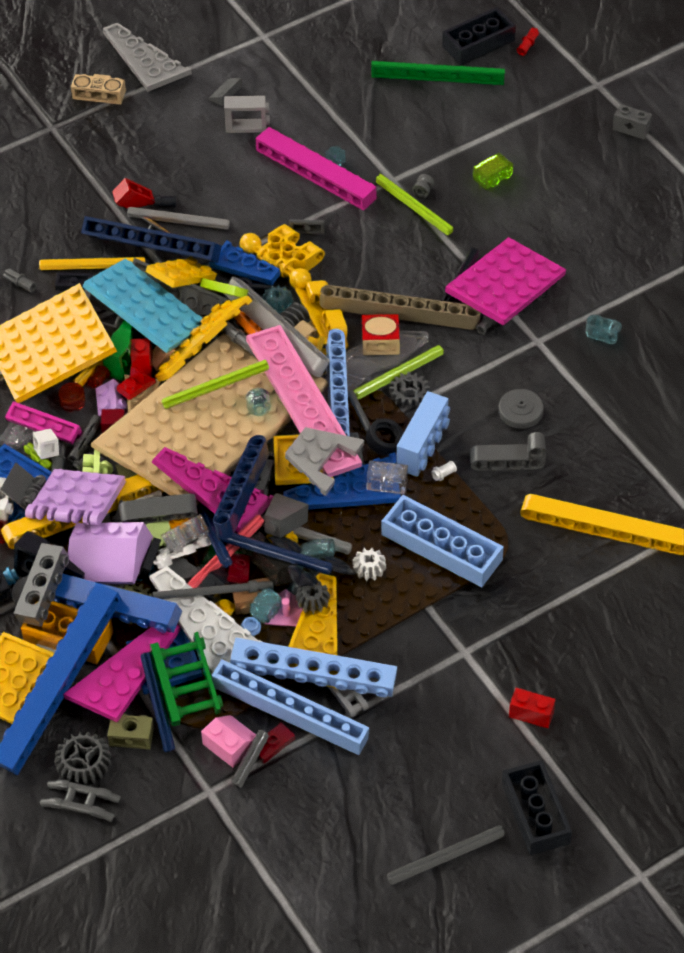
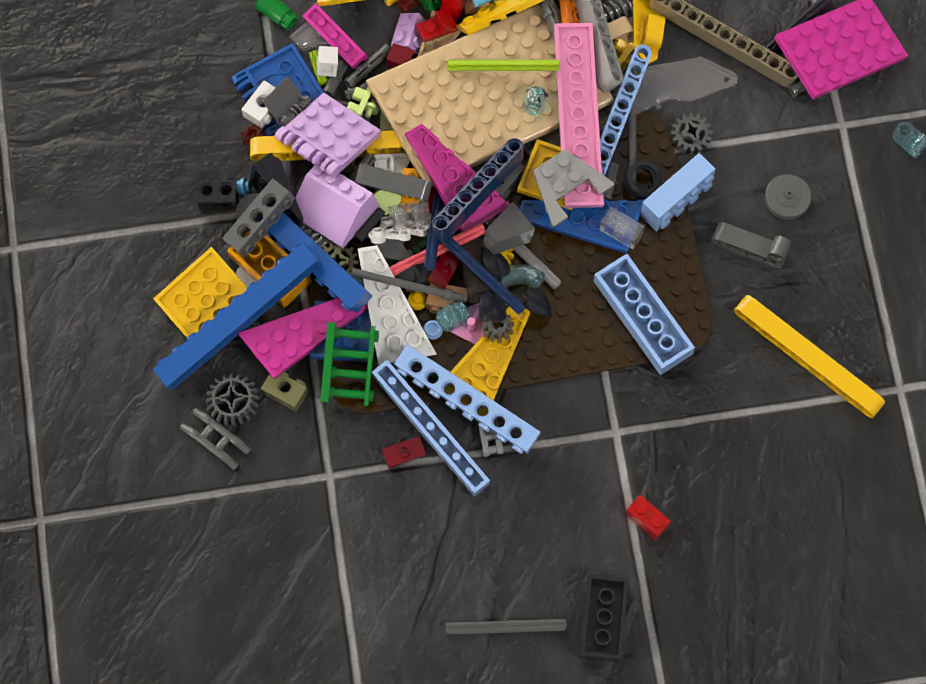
camera: 25 degrees right, 20 degrees up
(72, 397) = (374, 15): clear red wheel -> none
(157, 702) = (317, 373): dark blue axle -> none
(227, 739) = (368, 433): bright pink slope -> none
(250, 758) = (376, 461): dark grey axle -> none
(369, 564) = (564, 315): white gear -> none
(381, 334) = (690, 61): tan panel -> none
(404, 368) = (694, 108): lime axle -> none
(439, 473) = (681, 237): white pin -> none

